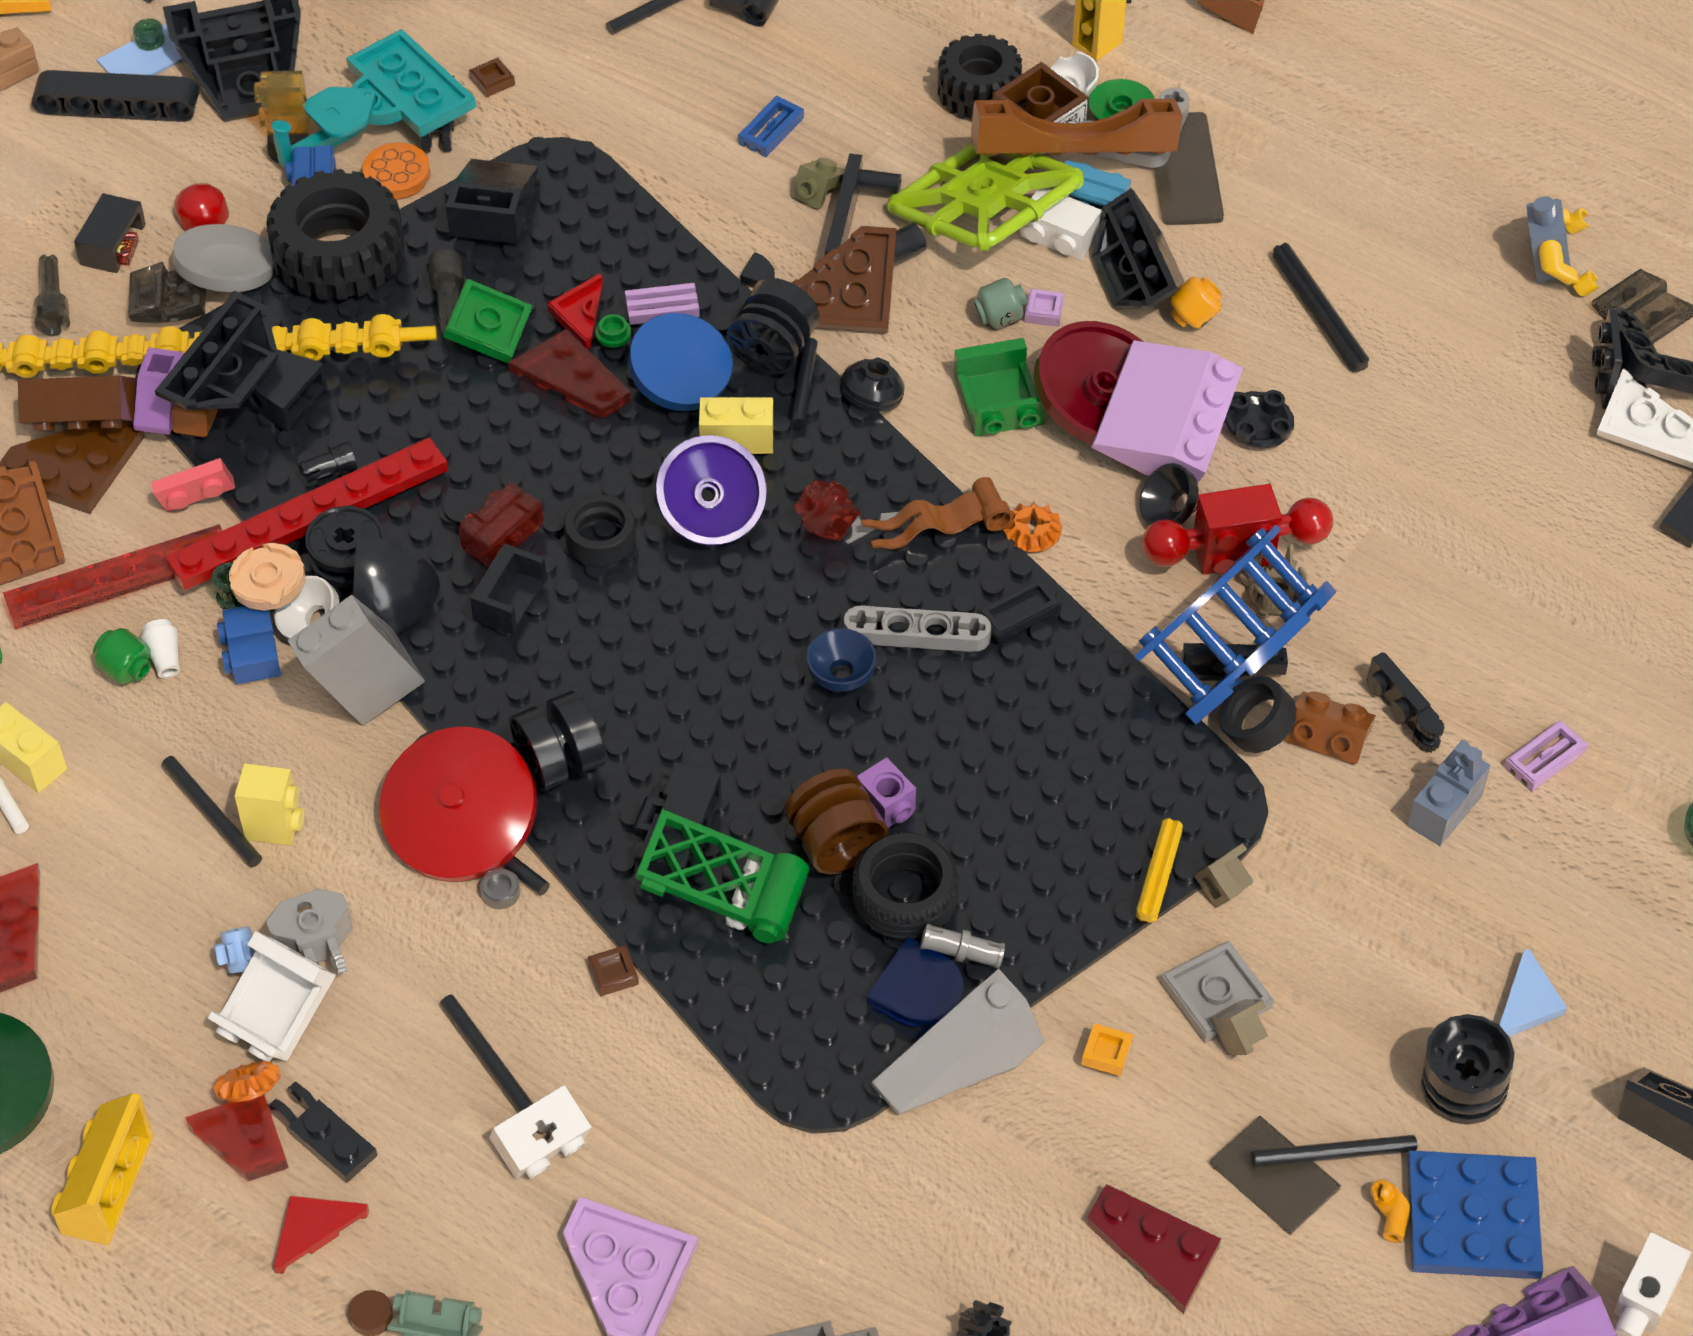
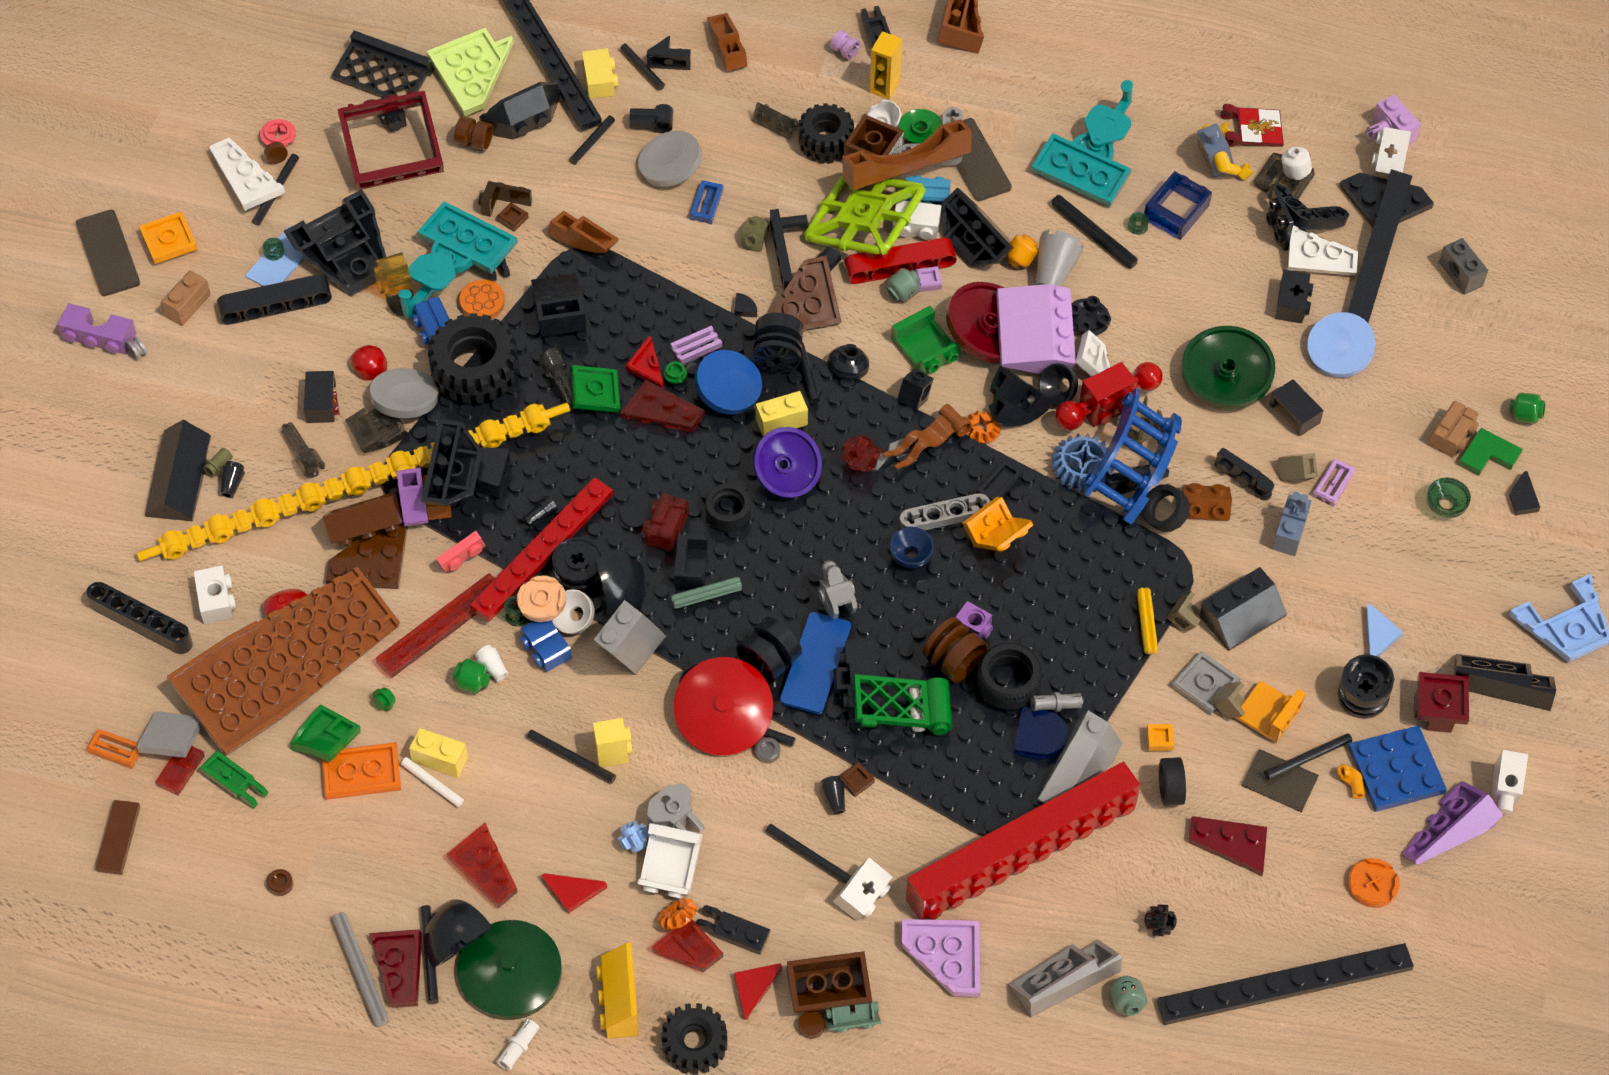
camera: 20 degrees left, 5 degrees up
(117, 1002) = (572, 890): none -> red tile
(174, 1248) = (694, 1021): none -> black tyre
(419, 1253) = (828, 982): none -> reddish brown slope
(481, 38) = (500, 191): none -> dark brown bracket
(513, 638) = (706, 592): none -> sand green axle
(566, 979) = (834, 794): none -> black cone
(570, 117) = (581, 233): none -> dark orange slope
(612, 796) = (812, 672): none -> blue piece
(696, 683) = (836, 590): none -> light grey hinge
(743, 55) = (670, 158): none -> light grey piece
(816, 1137) = (1022, 842): none -> red brick
(914, 44) = (774, 120): none -> clear smoke hinge
(951, 445) = (915, 389): none -> black brick
(968, 269) = (925, 254): none -> red beam
(979, 663) = (994, 526): none -> light orange bracket
(1092, 1119) = (1172, 781): none -> black tyre
(1097, 502) = (1016, 400): none -> black brick
(1154, 603) = (1069, 457): none -> medium blue gear
(1239, 466) = (1092, 354): none -> white wing
(1244, 321) = (1056, 257): none -> light grey cone
(1302, 1062) = (1270, 710): none -> light orange bracket
(1320, 897) = (1243, 609): none -> black slope
(1351, 211) = (1086, 166): none -> teal plate
(1387, 320) = (1138, 217): none -> clear green bush
(1440, 322) = (1169, 220): none -> clear blue window
(1442, 543) = (1228, 367): none -> dark green dish
(1496, 715) = (1298, 466): none -> dark tan panel
(1531, 628) = (1298, 405): none -> black panel
(1586, 1129) = (1442, 701): none -> dark red panel
(1588, 472) = (1293, 296): none -> black brick
(1624, 227) = (1255, 126): none -> flag
(1636, 559) = (1341, 344): none -> light blue piece
(1666, 288) = (1296, 163): none -> white head

